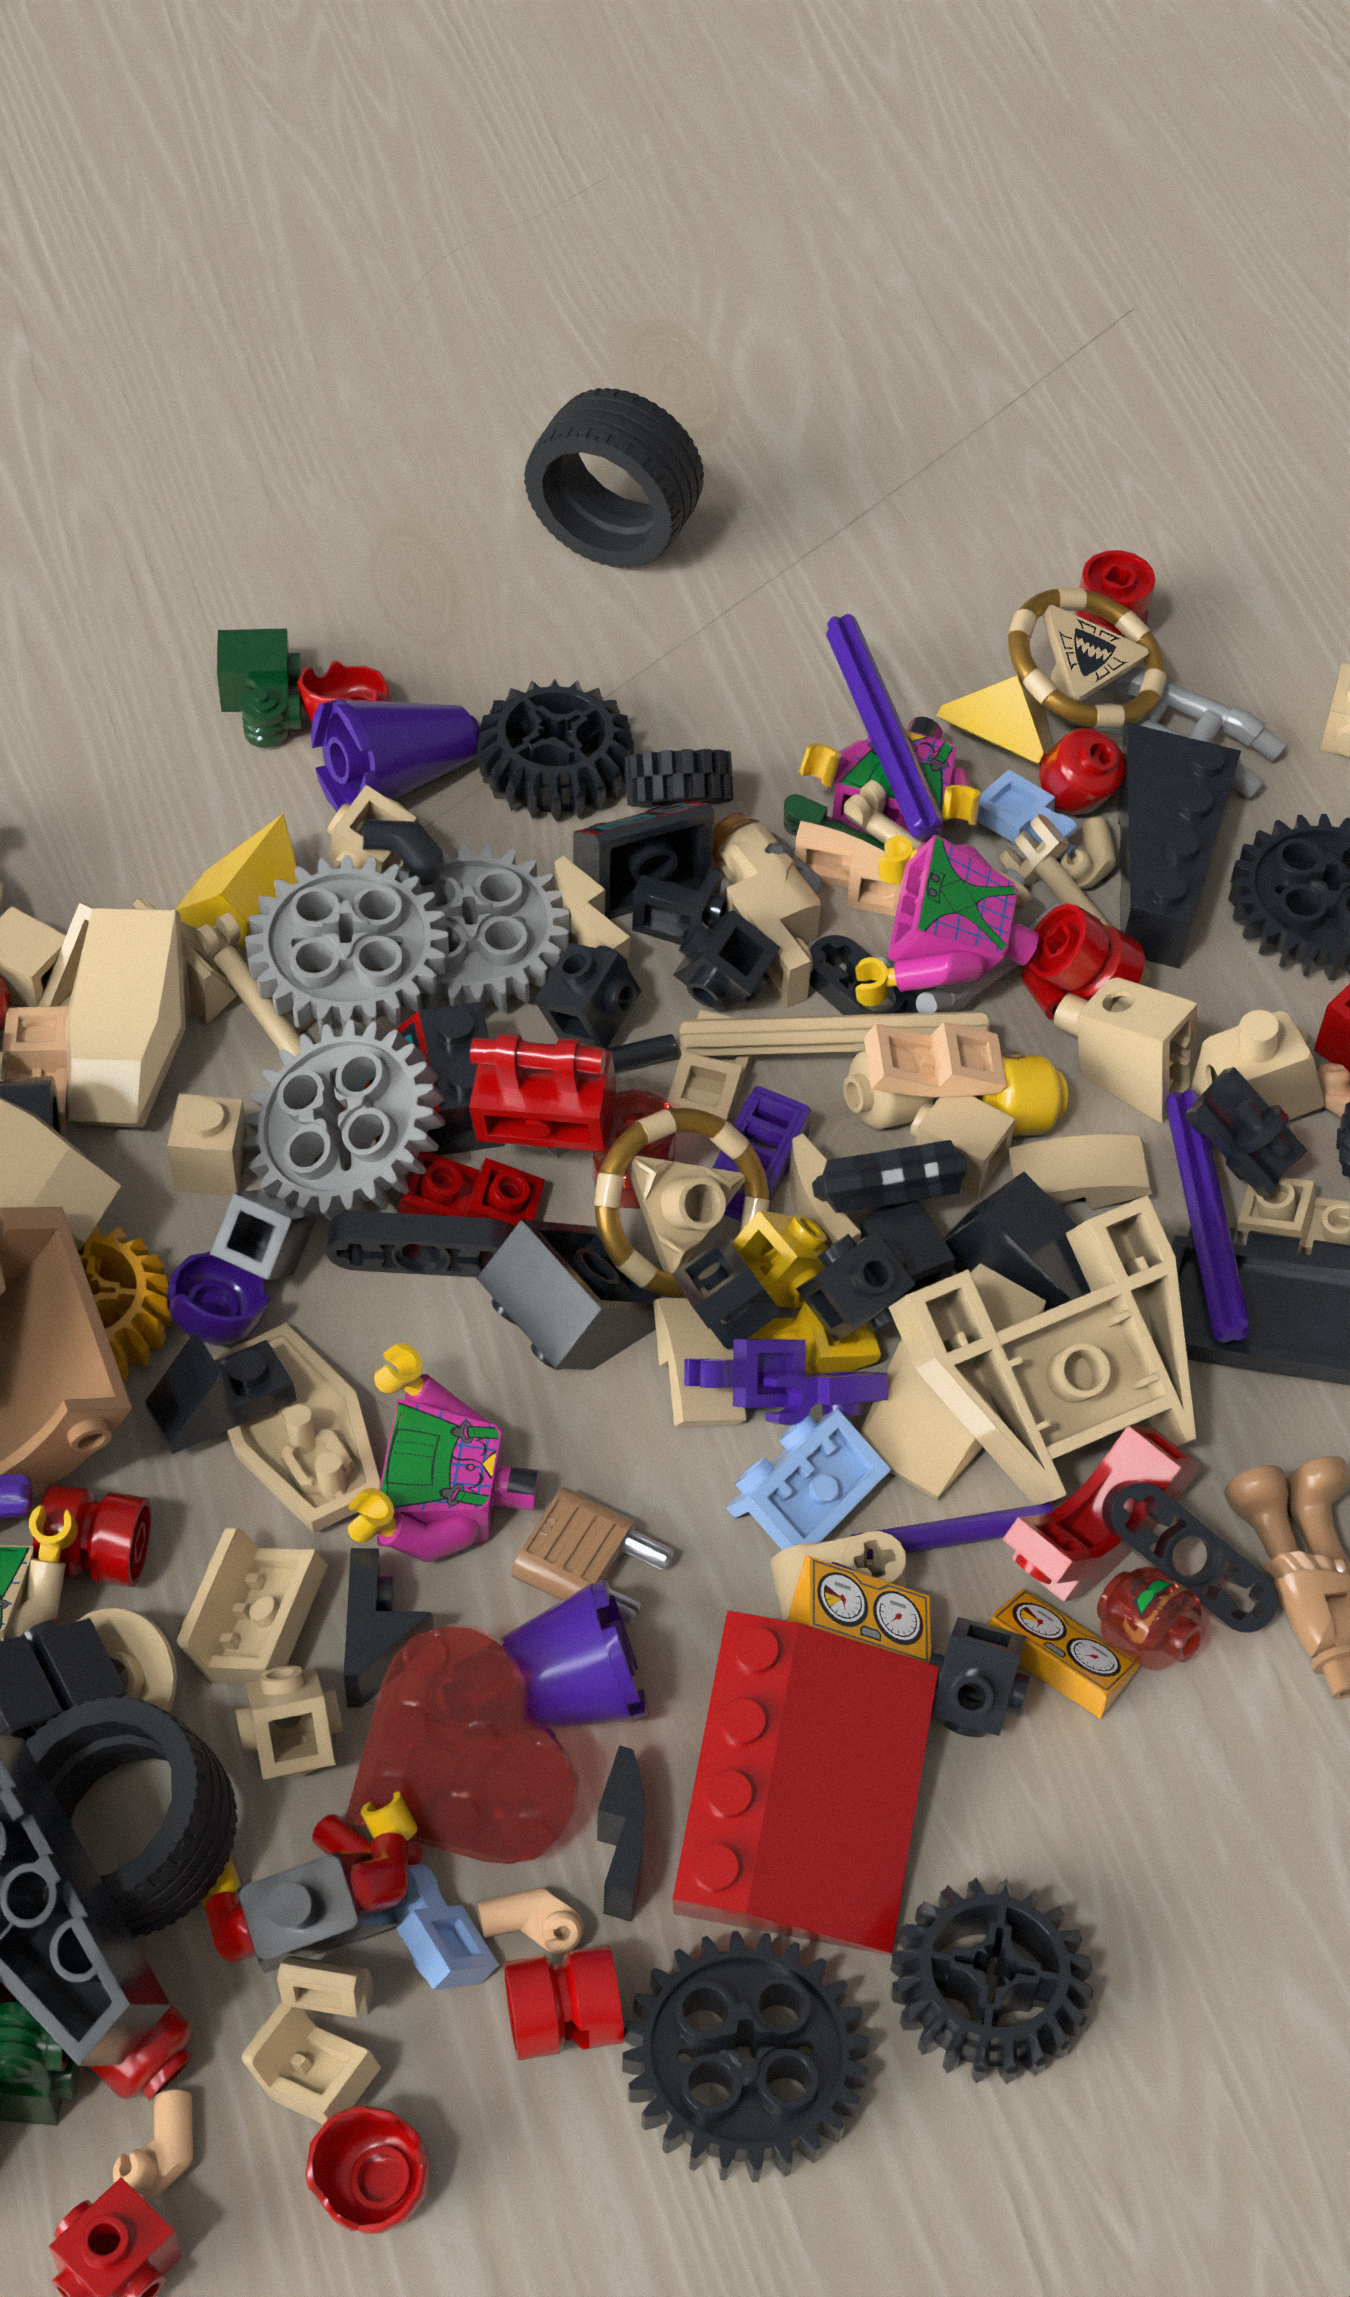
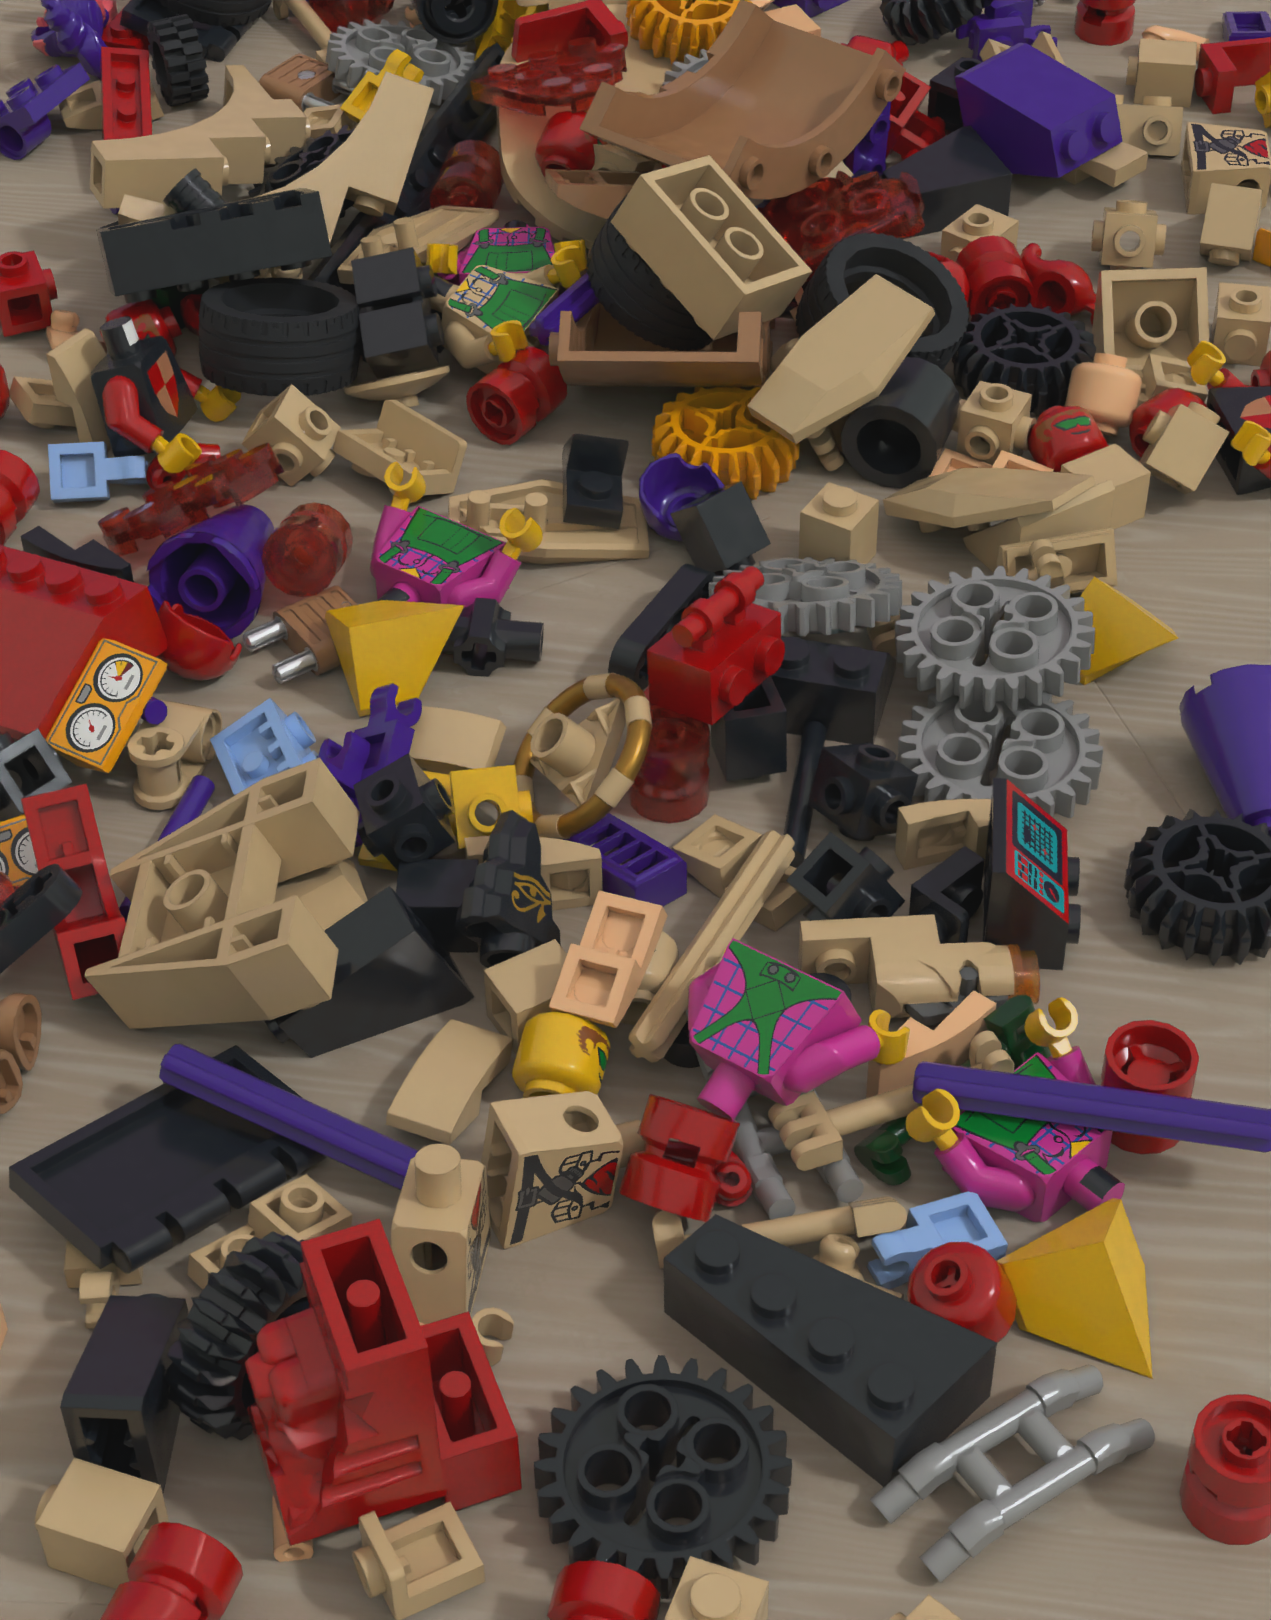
camera: 120 degrees right, 10 degrees down
(347, 830) = (1133, 704): tan brick -> none
(373, 1627) = (351, 494): black slope -> none
(410, 842) = (1084, 690): black arm -> none
(498, 1588) = (317, 539): none -> clear red wheel
(520, 1393) = (488, 636): none -> black axle
(536, 1915) = (75, 524): light nougat arm -> none
(567, 1294) = (534, 669): black slope -> none
(590, 1455) = (389, 645): none -> yellow slope
(678, 776) = (1105, 934): black tyre -> none
(683, 1637) = (195, 645): none -> red hair
(726, 1293) = (469, 731): black slope -> none
(811, 710) = (1153, 1060): none -> red wheel
(1086, 656) = (1121, 1349): piece -> none
(1246, 1131) = (358, 1160): black hips -> none

